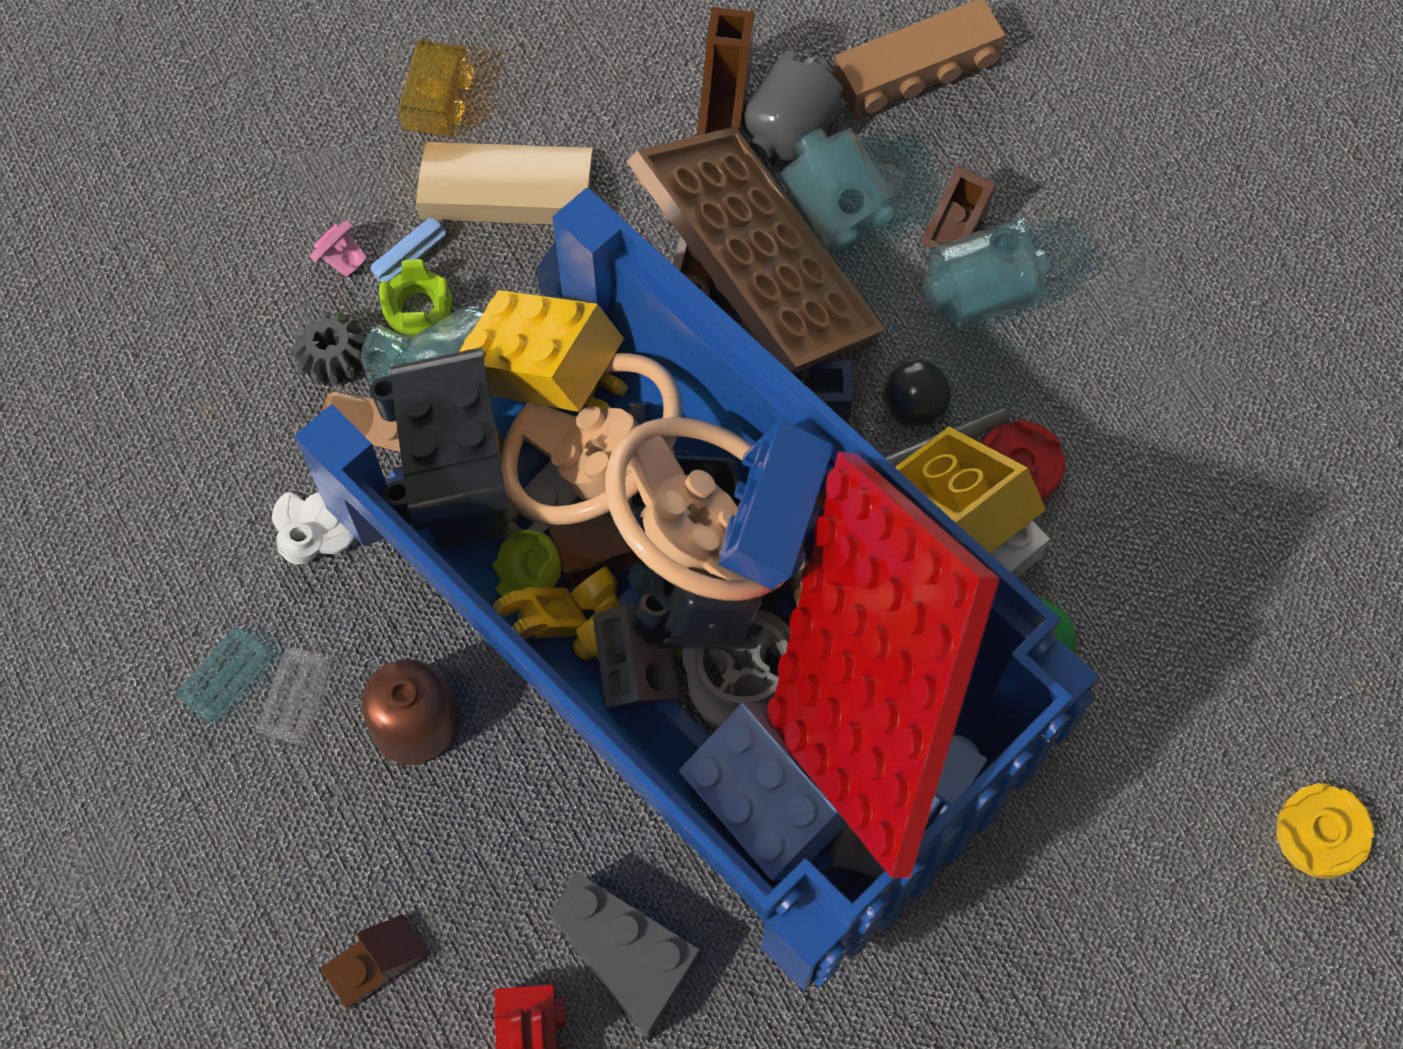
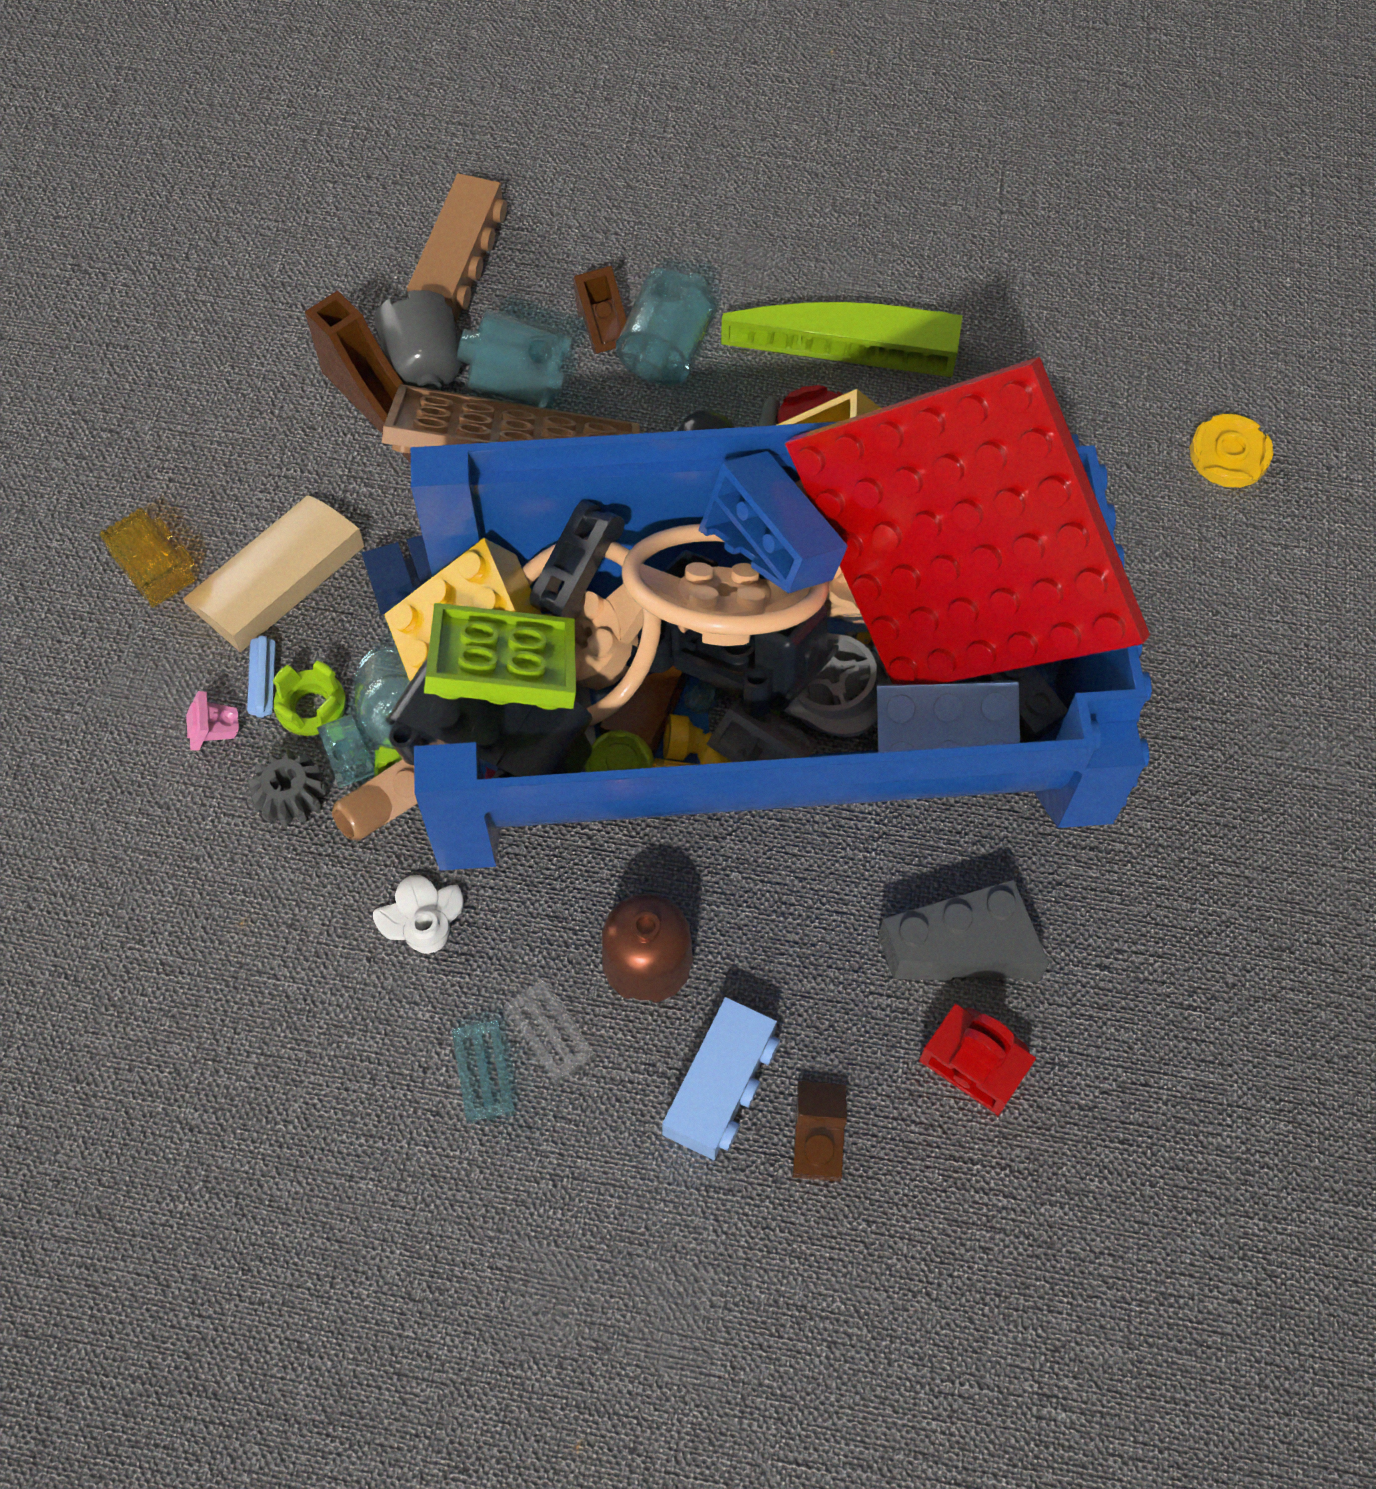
camera: 50 degrees left, 5 degrees down
(351, 853) = (721, 1079): none -> light blue brick
(489, 401) = (501, 657): none -> lime plate
(636, 385) = (575, 560): none -> black plate
(1136, 425) = (851, 333): none -> lime slope

